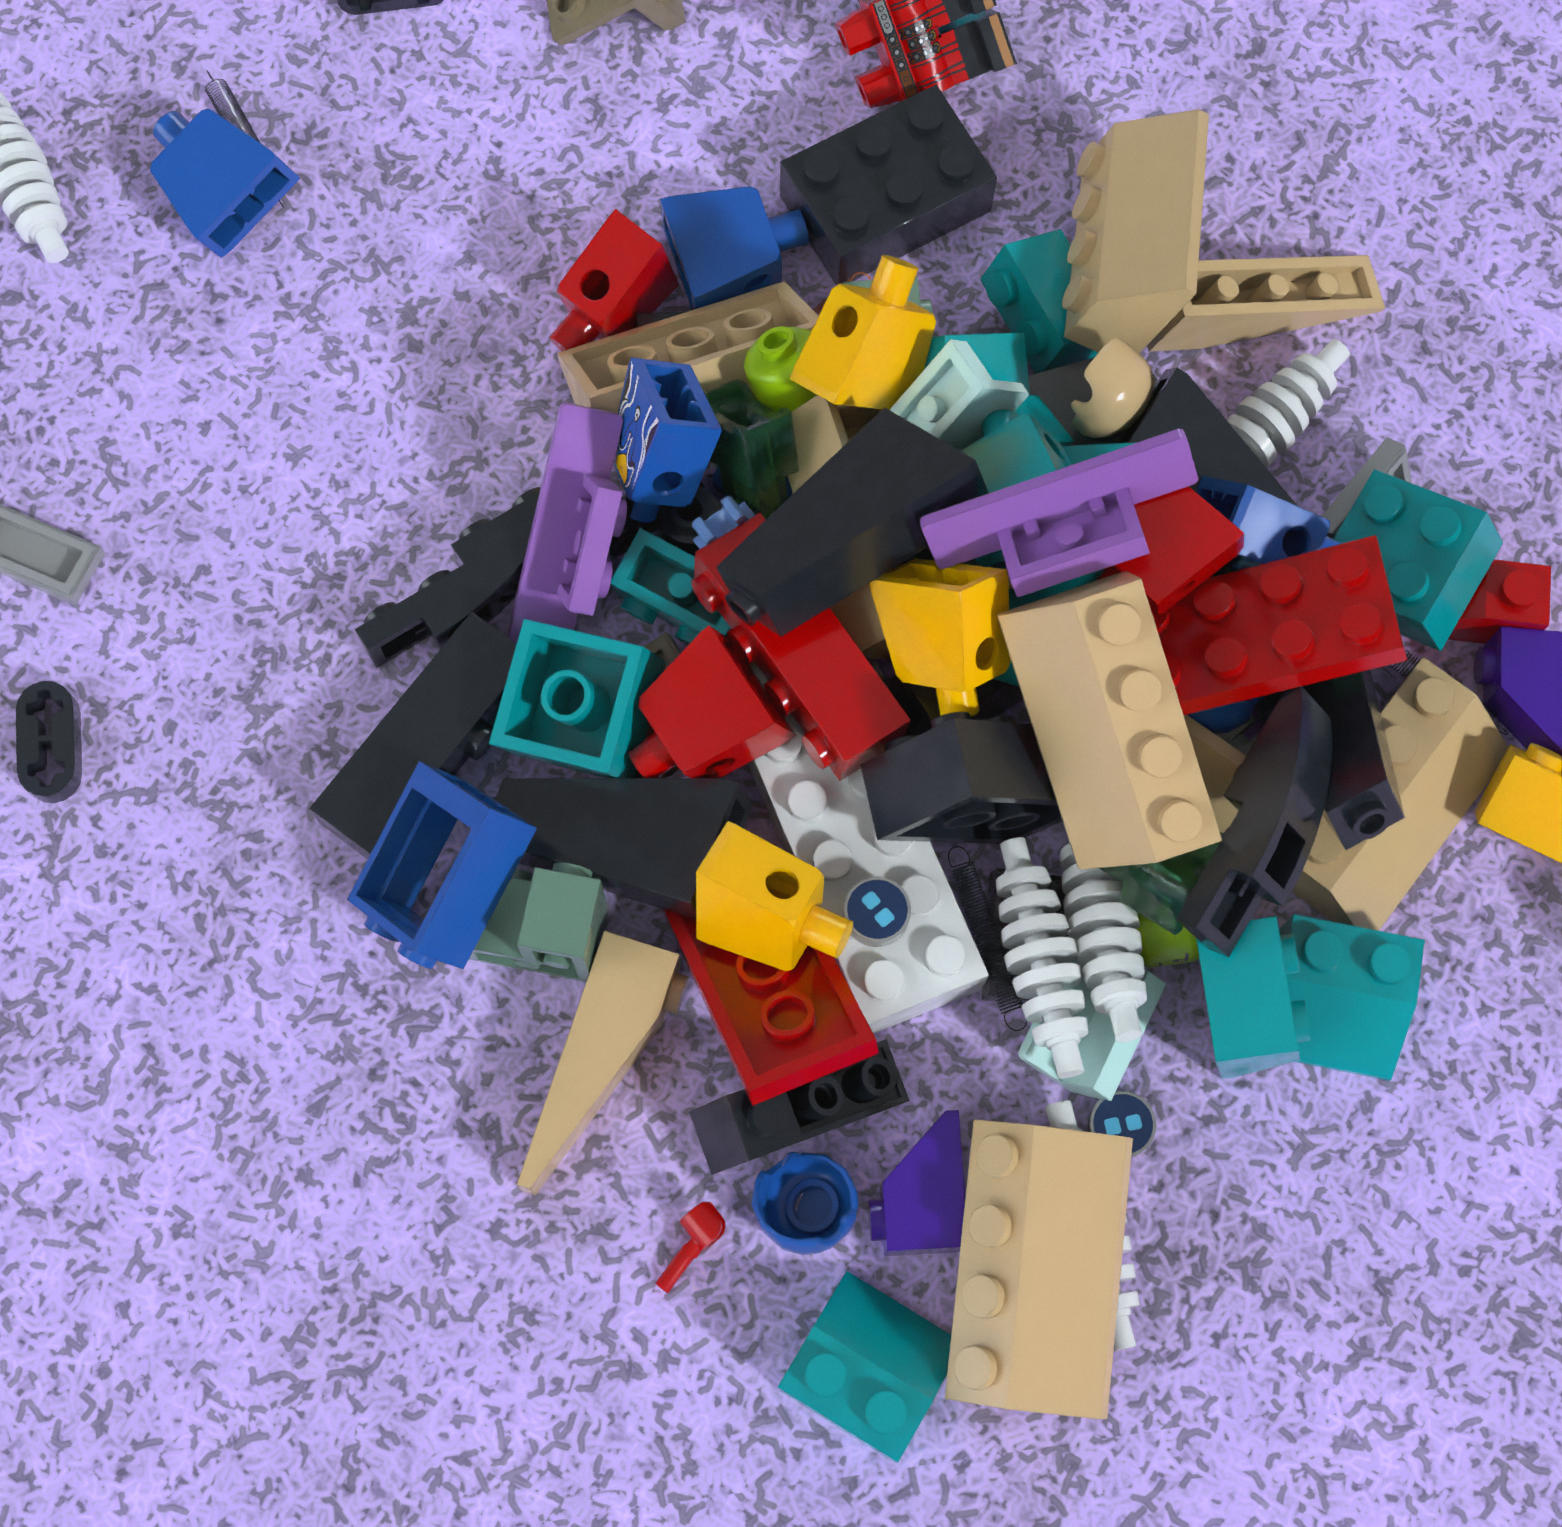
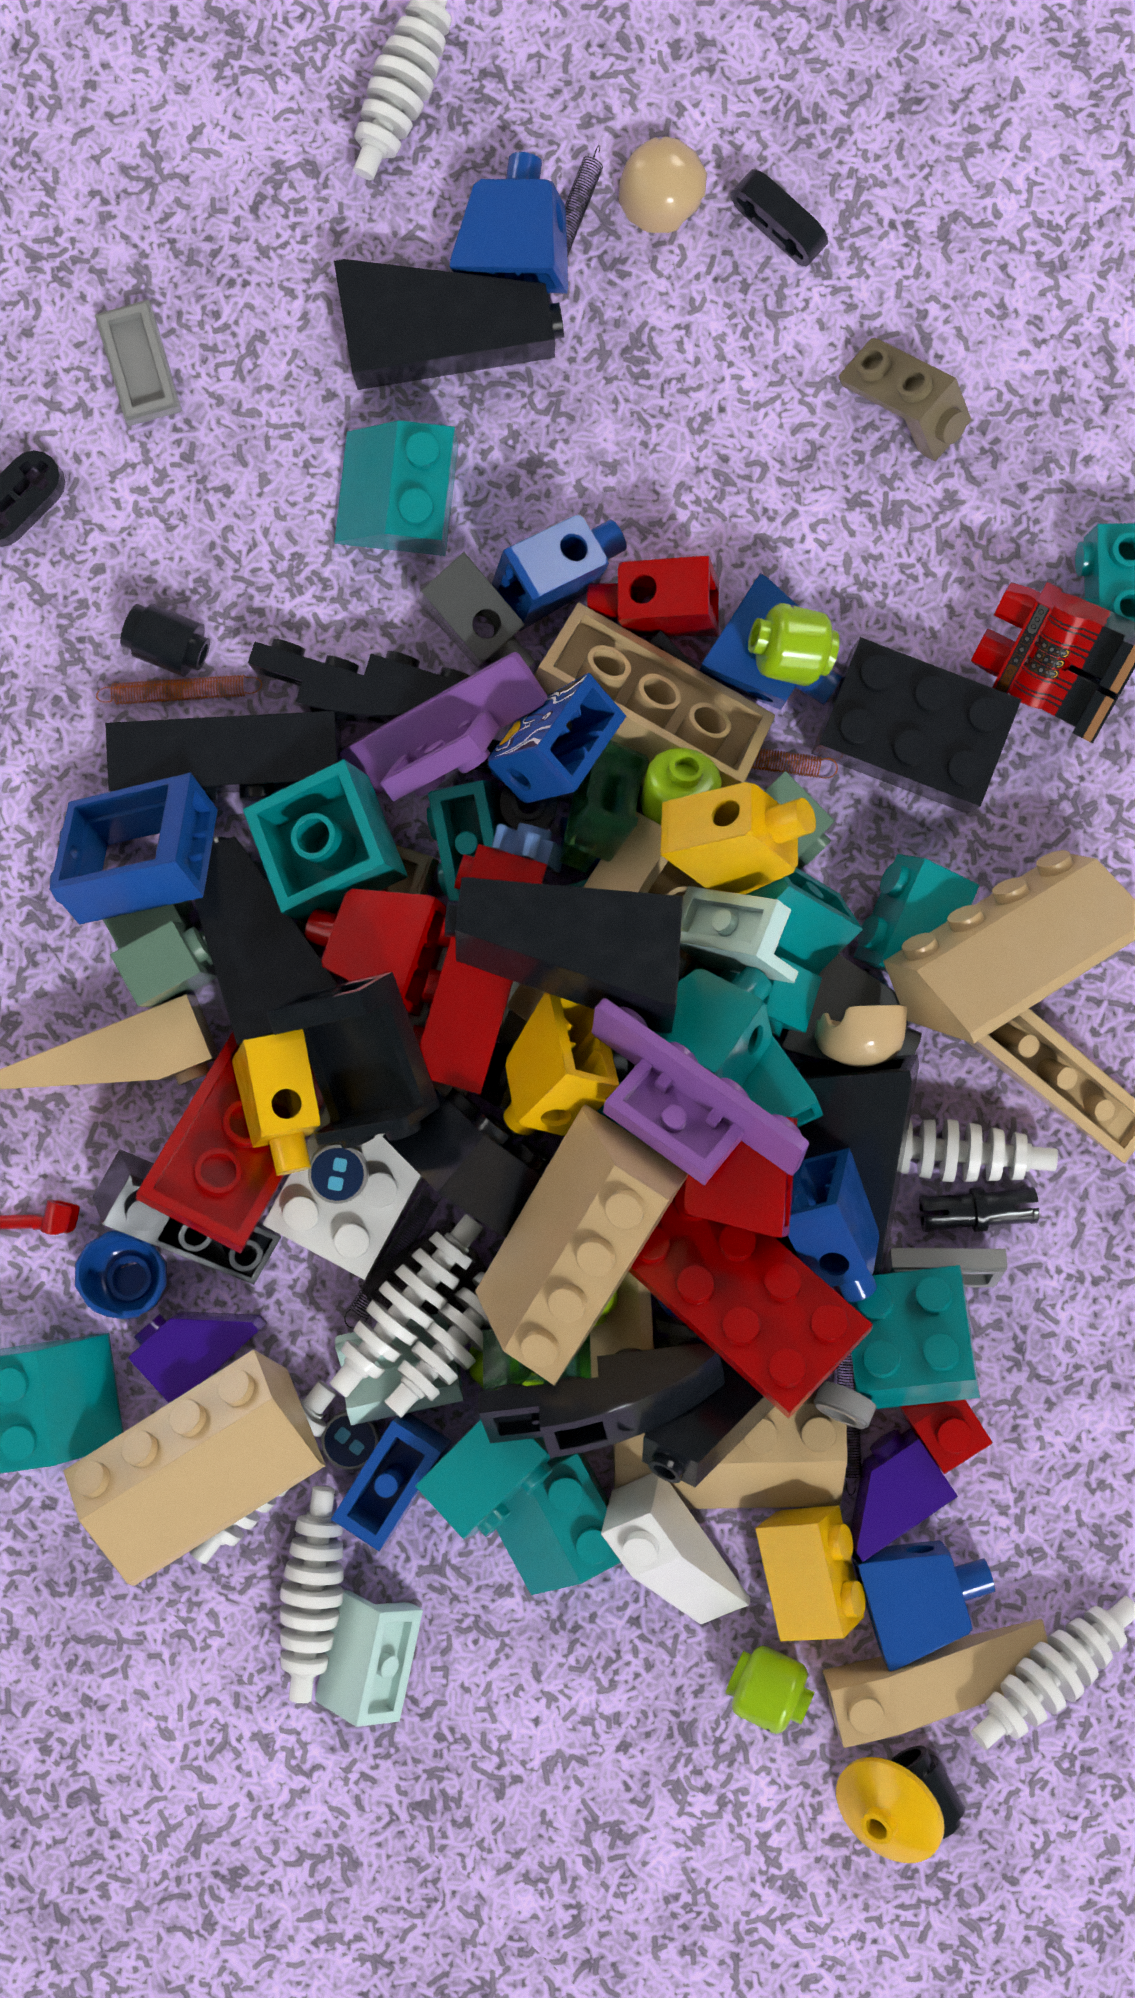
camera: 50 degrees right, 15 degrees up
(229, 290) = (440, 323): none -> black slope
(282, 49) = (662, 185): none -> tan hair
(282, 711) = (165, 639): none -> black brick
(332, 425) = (398, 487): none -> teal slope
(352, 706) = (203, 697): none -> orange piece
(488, 441) = (463, 594): none -> dark grey torso
(515, 336) = (555, 566): none -> blue torso
(743, 207) = (794, 644): none -> lime head
(798, 790) = (362, 1059): none -> black panel
(1190, 1103) = (388, 1480): none -> blue brick
(1240, 1272) = (311, 1595): none -> white piece
(1334, 444) = (979, 1209): none -> black pin
(1338, 1273) = (369, 1660): none -> light aqua panel
(1428, 646) = (844, 1405): none -> light grey tile
(1445, 907) = (669, 1550): none -> white slope

